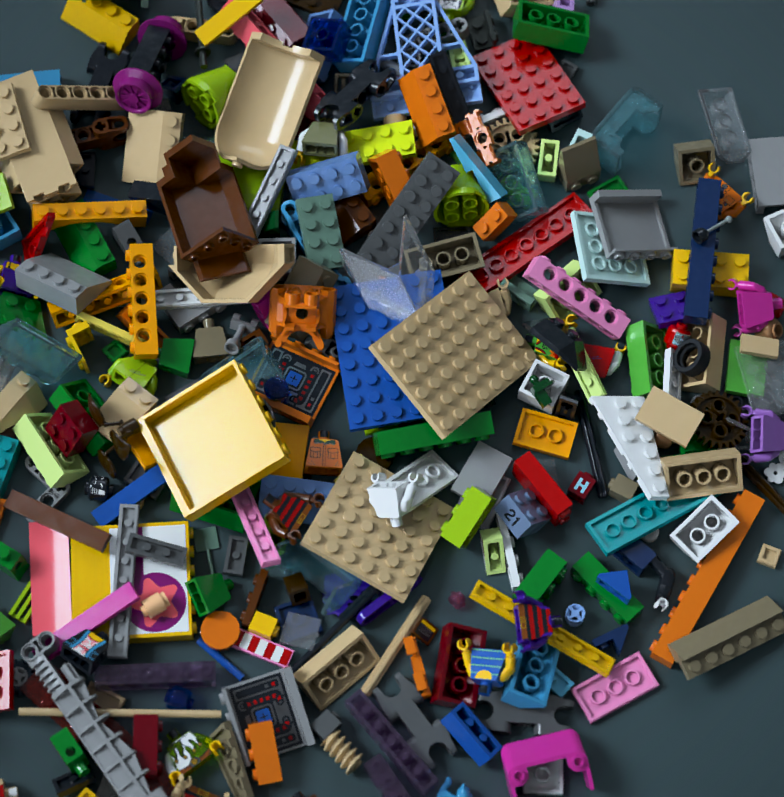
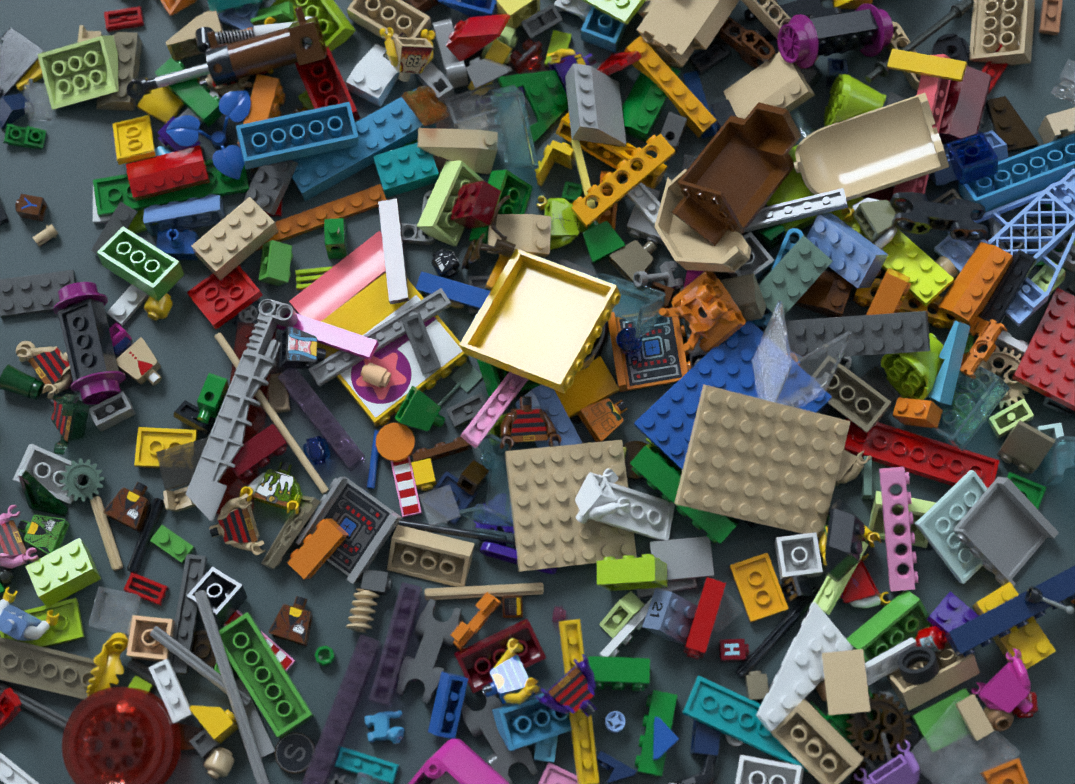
camera: 60 degrees right, 5 degrees up
(539, 392) = (786, 554): dark green piece -> none

